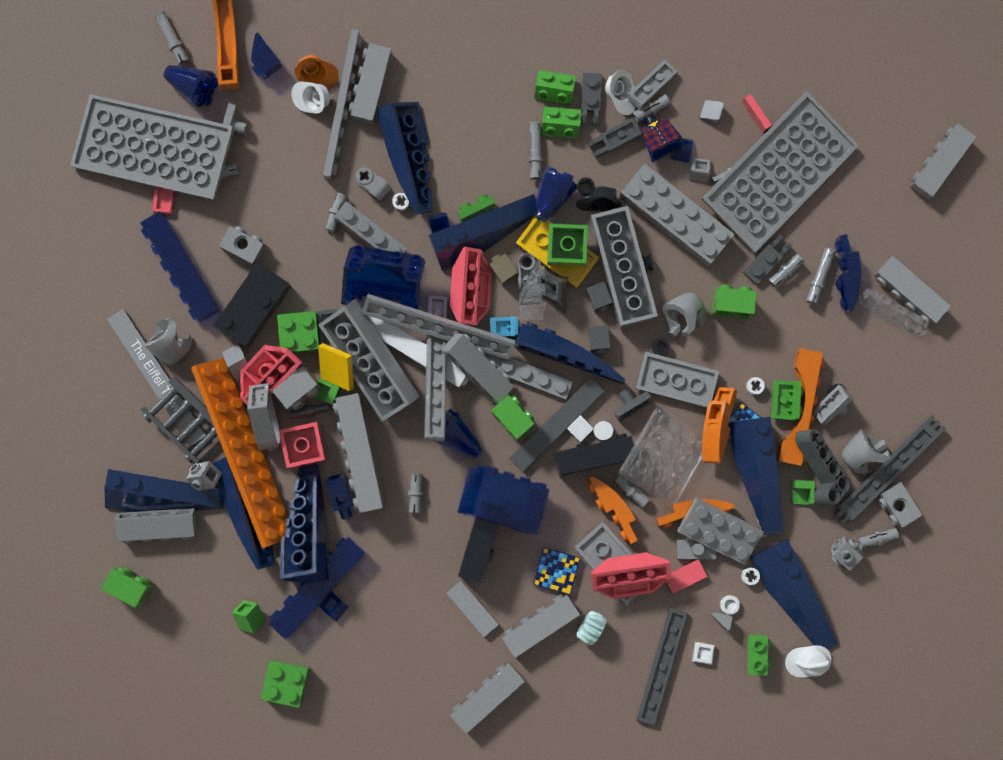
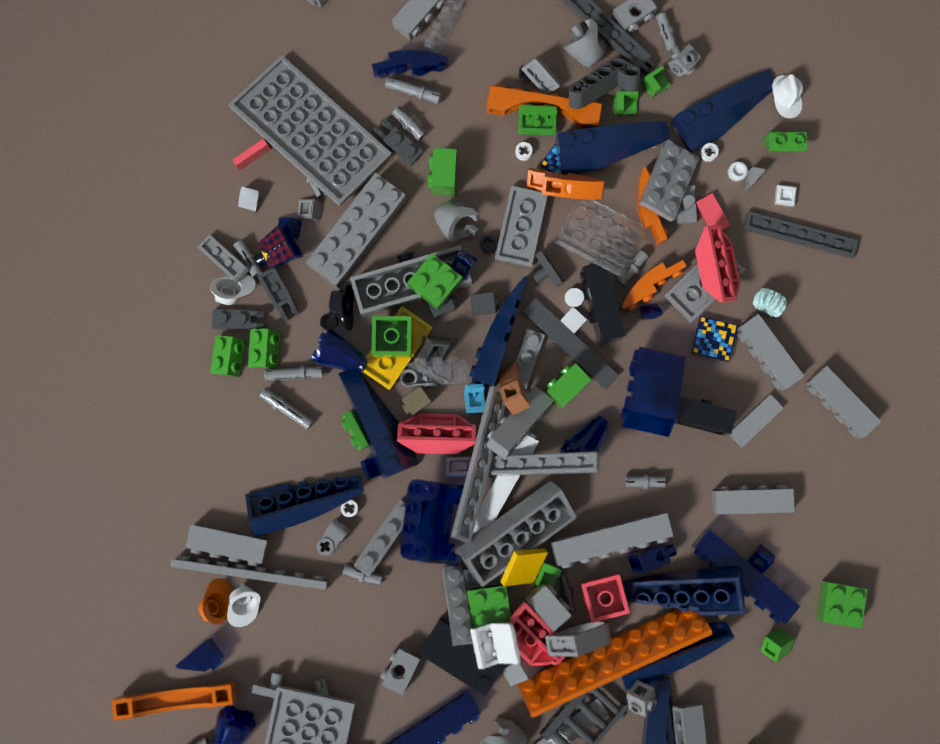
camera: 90 degrees left, 0 degrees up
(262, 333) = (495, 644): none -> white bracket
(301, 301) = (457, 605): none -> light grey plate
(391, 600) = (753, 501): none -> light grey brick
(511, 361) = (513, 389): none -> nougat slope
(514, 124) = (286, 408): none -> light grey pin
(586, 506) = (650, 311): none -> clear blue slope
(620, 287) = (434, 281): none -> bright green brick
(638, 317) = (463, 263): none -> clear blue slope
(825, 525) = (656, 82): none -> bright green panel

